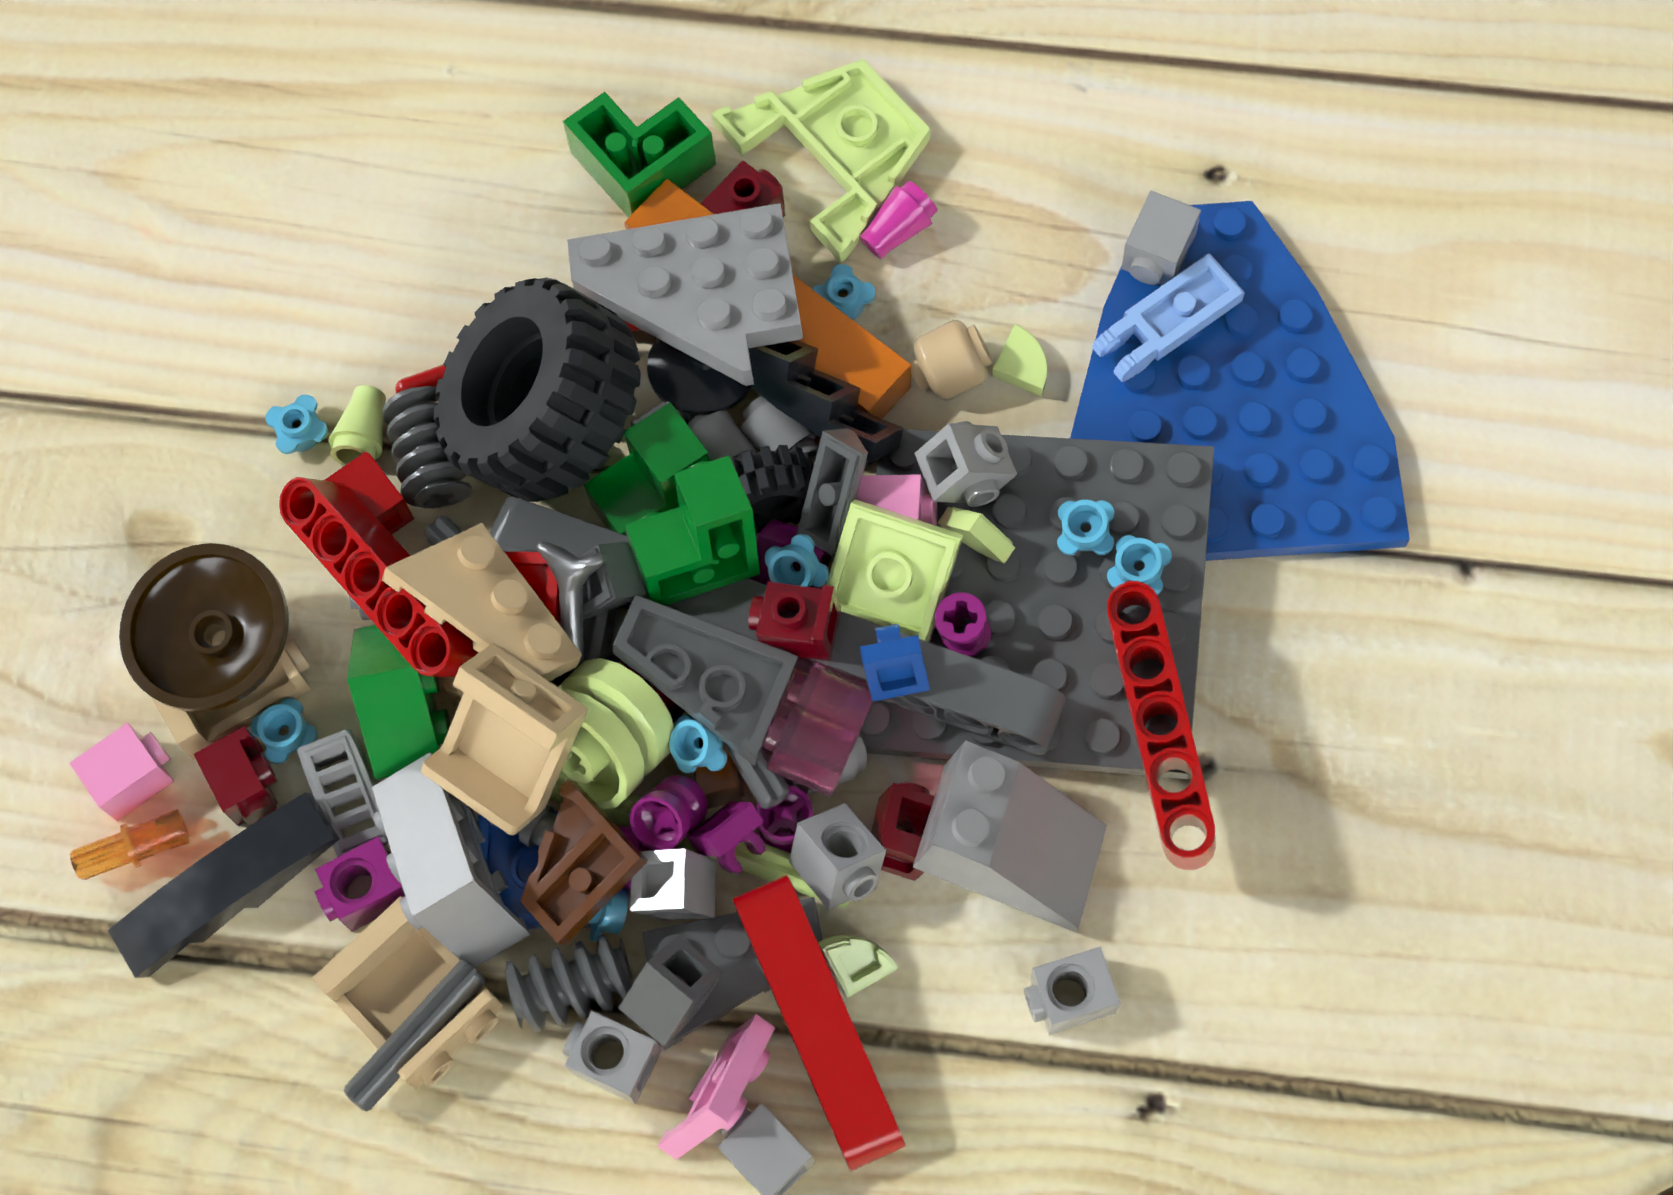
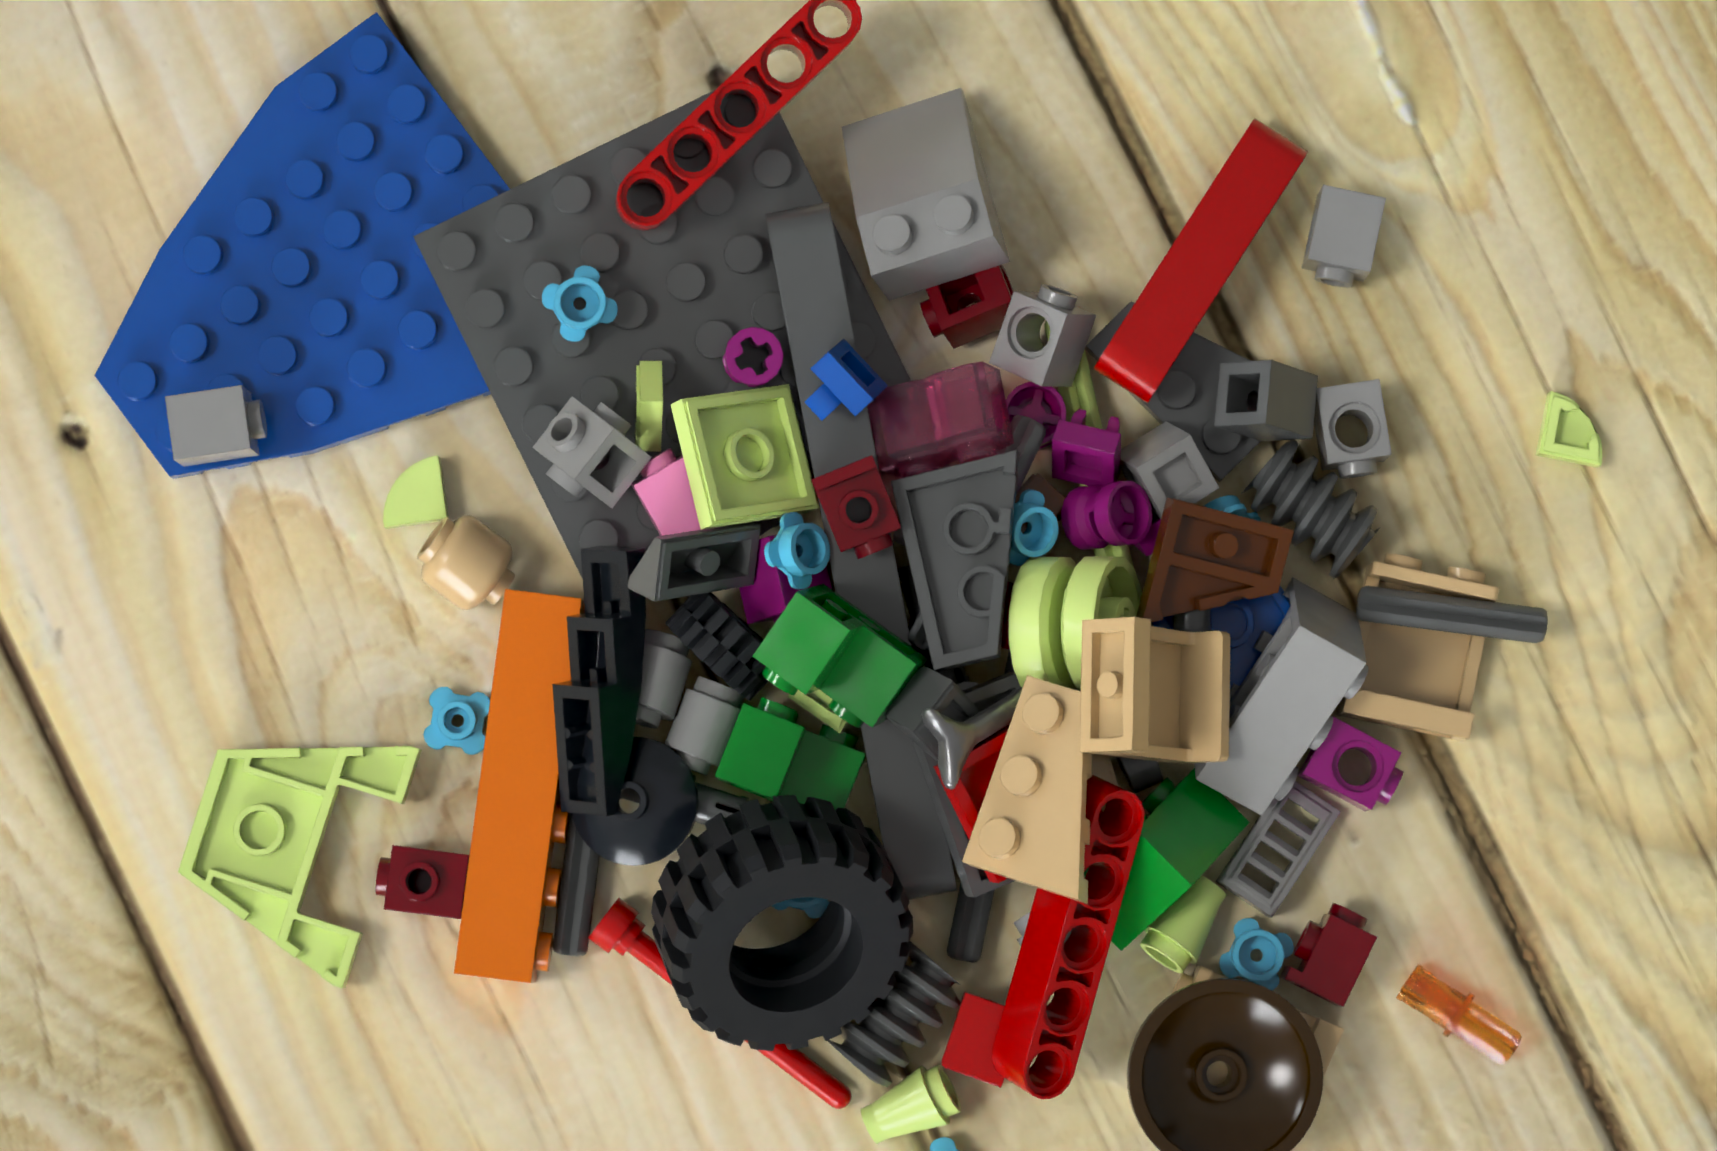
camera: 125 degrees left, 15 degrees up
(123, 770) = (1396, 1073): bright pink brick -> none
(223, 883) = (1436, 894): black slope -> none
(332, 688) = (1183, 928): none -> yellowish green cone
(637, 159) = (456, 1025): green brick -> none
(698, 283) = (562, 845): light grey wing -> none
(719, 1091) = (1313, 308): bright pink wing -> none
(856, 961) = (1119, 268): yellowish green tile -> none
(899, 219) = (340, 717): dark pink cone -> none
(1086, 969) = (1018, 30): light grey brick -> none
(1134, 550) = (573, 217): medium azure plate -> none
(1171, 315) = (286, 366): light blue hinge -> none

